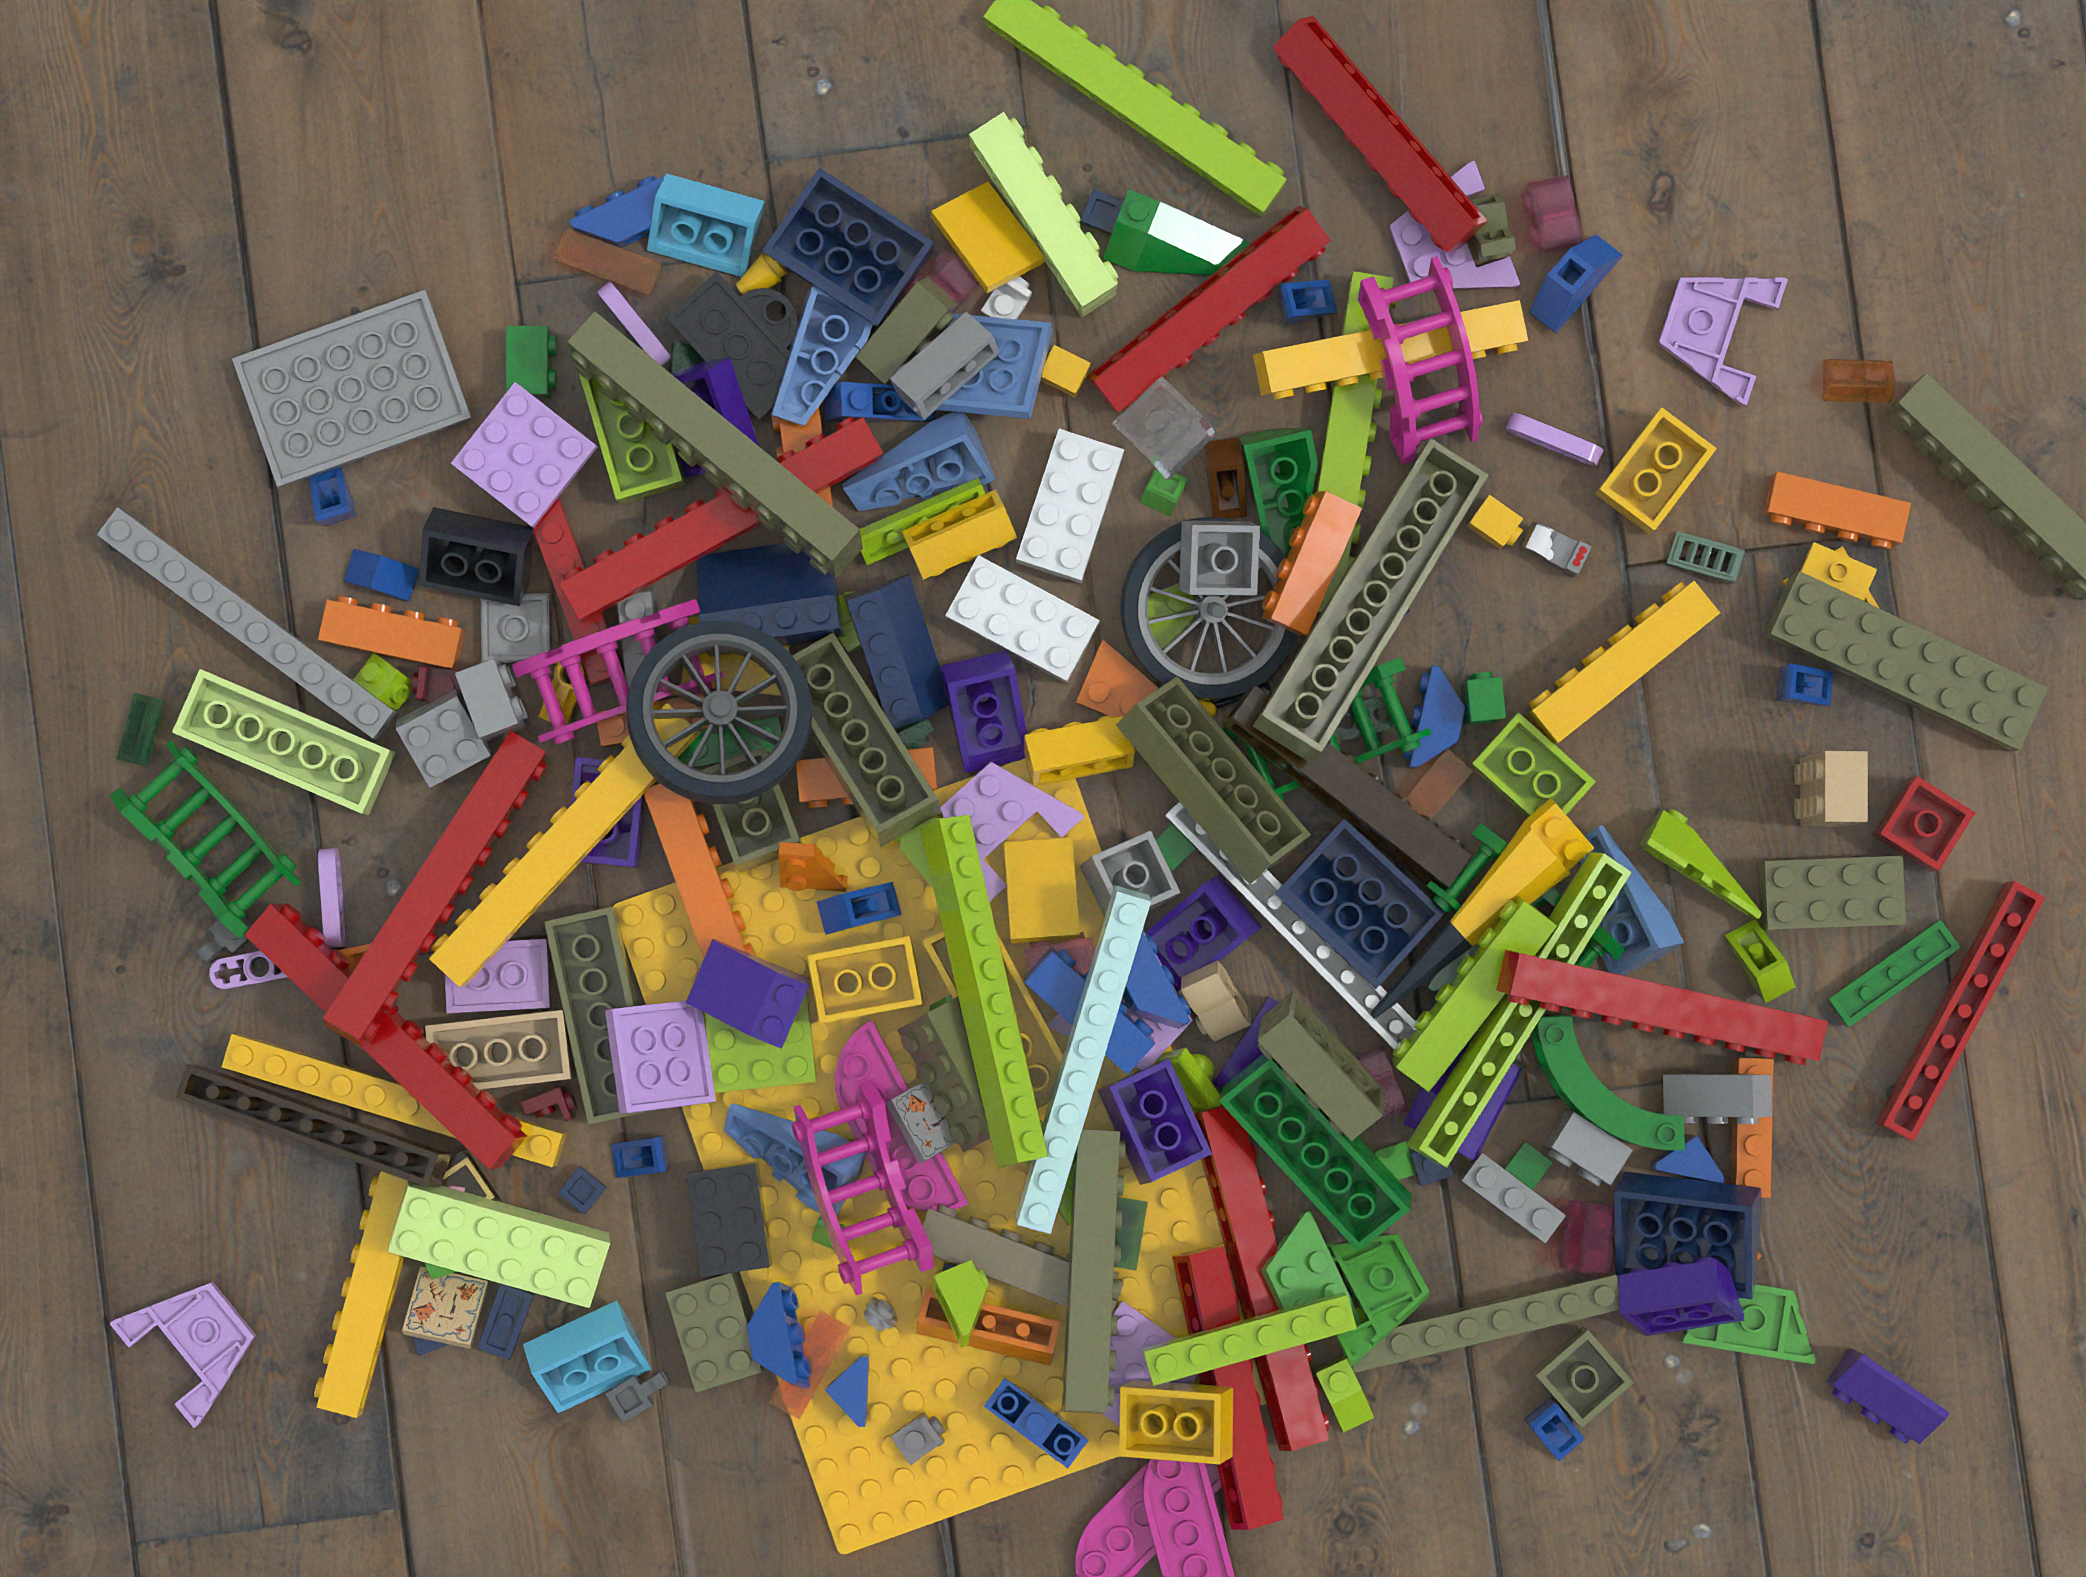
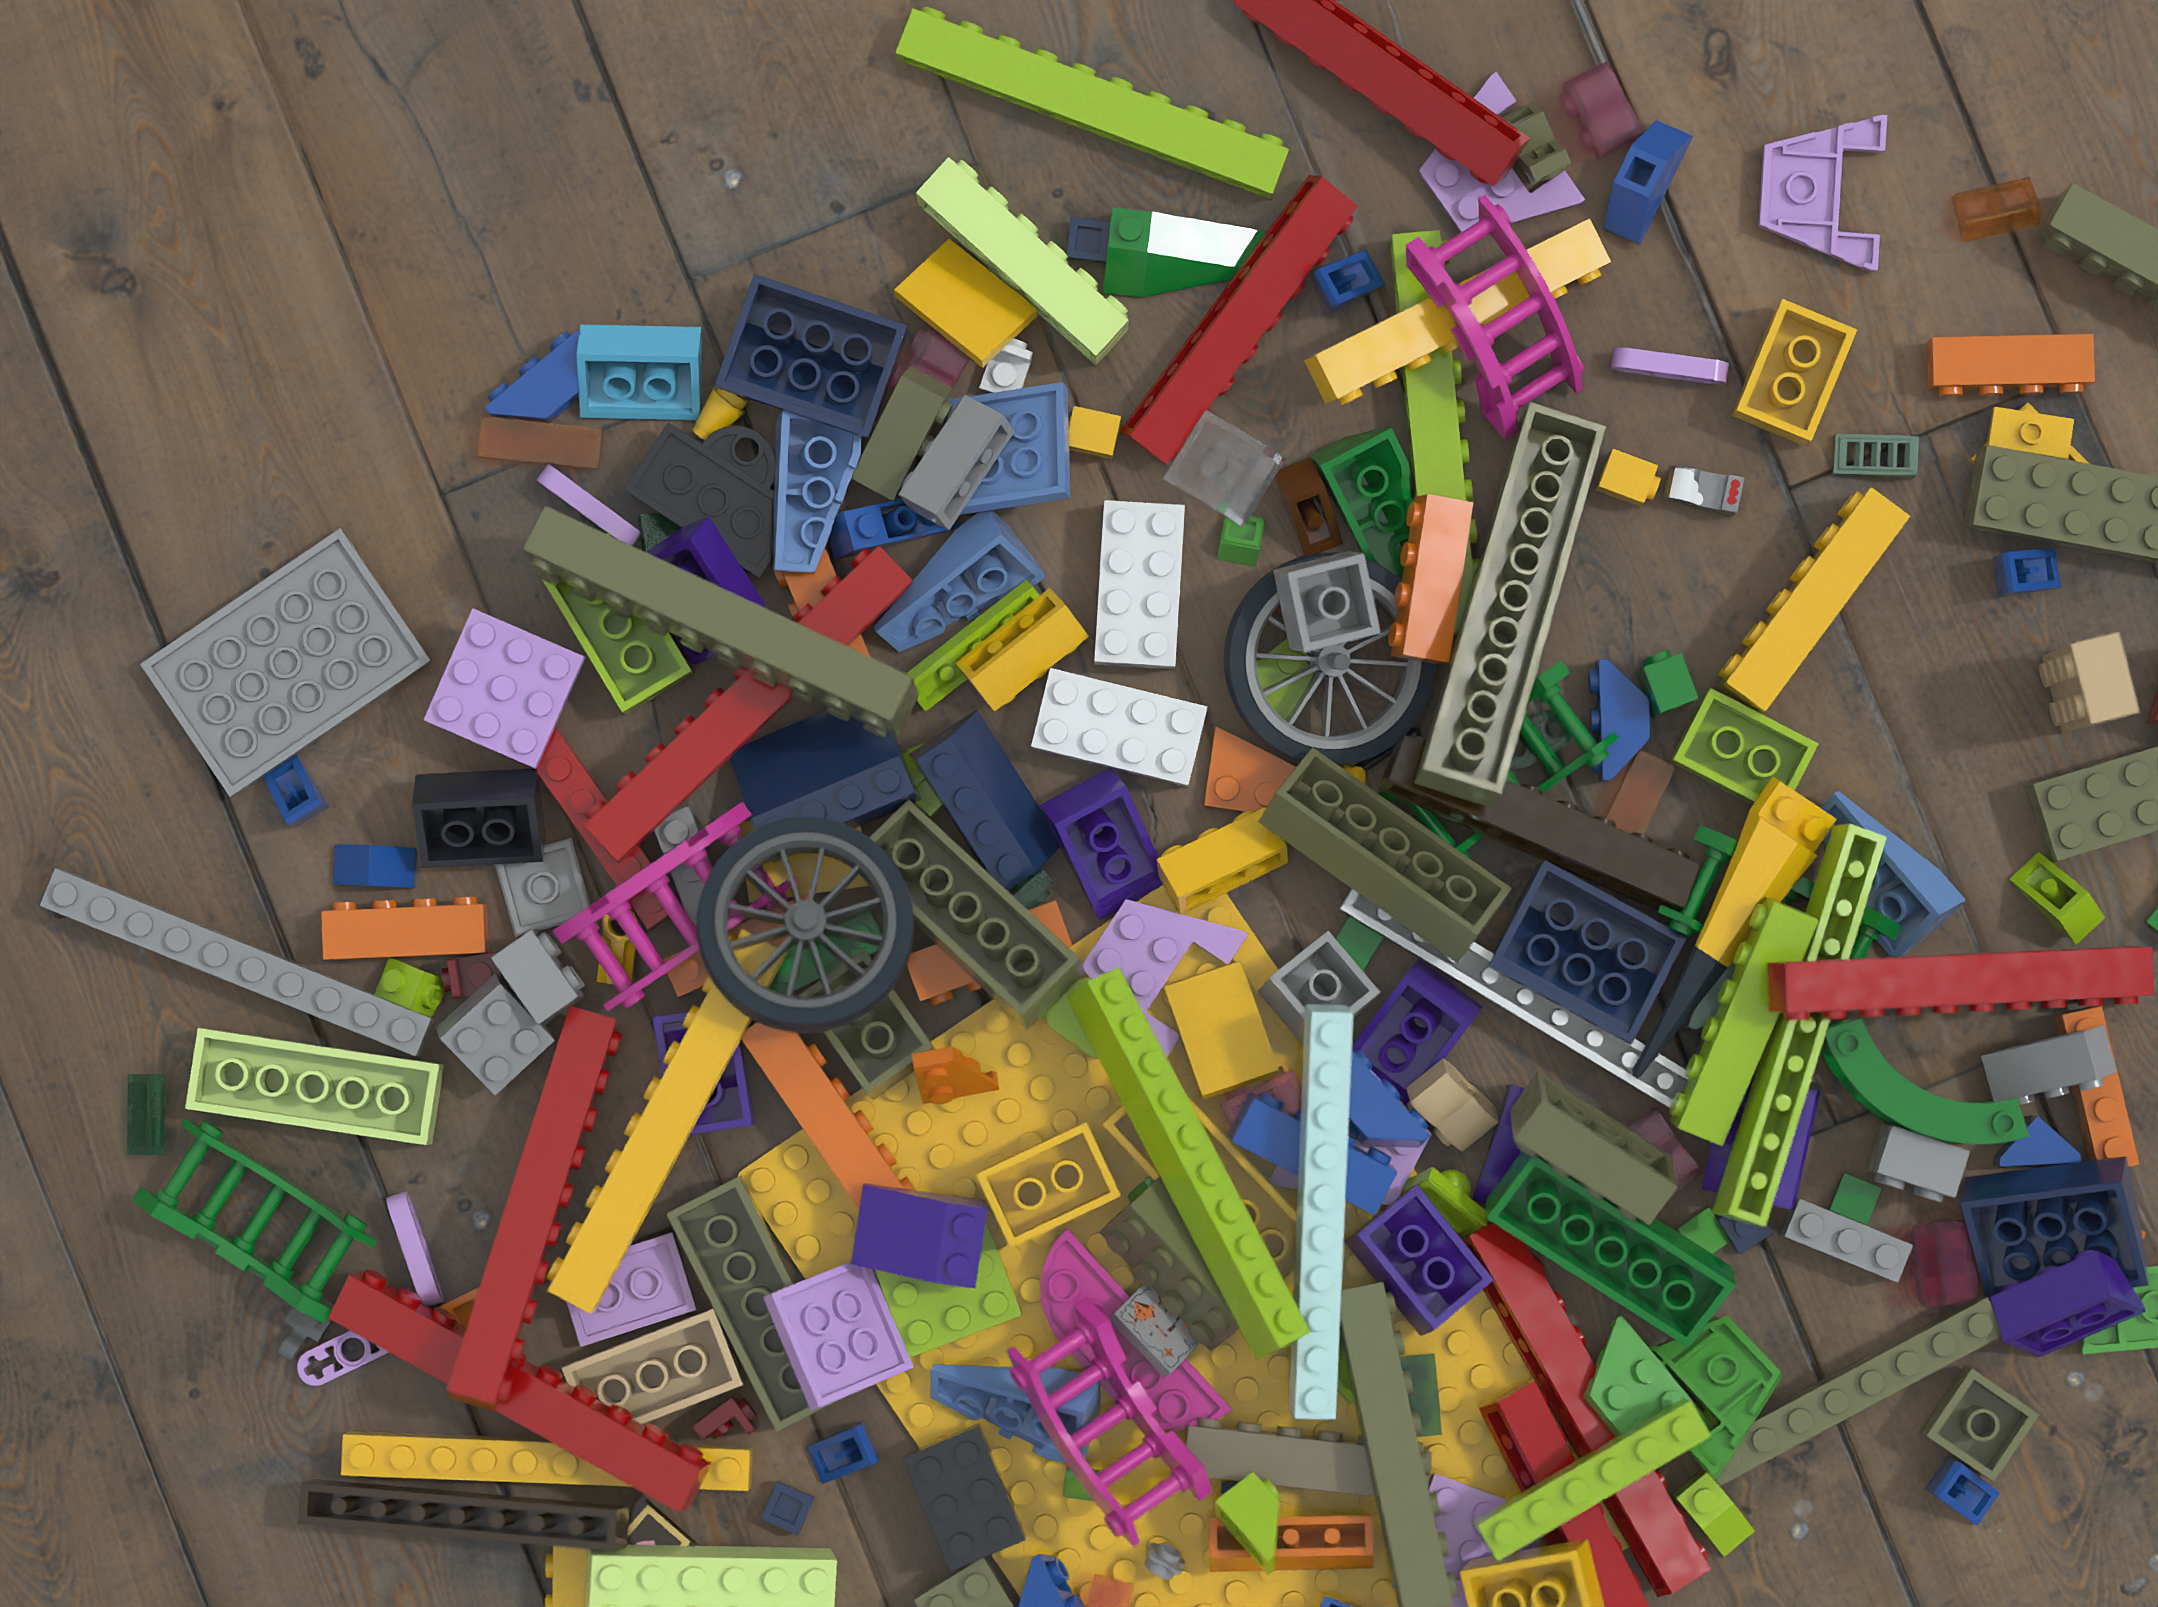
camera: 15 degrees left, 0 degrees up
(529, 359) = (480, 577): green brick -> none
(858, 908) = (1019, 1105): blue slope -> none
(1684, 851) = (1940, 796): lime wedge -> none

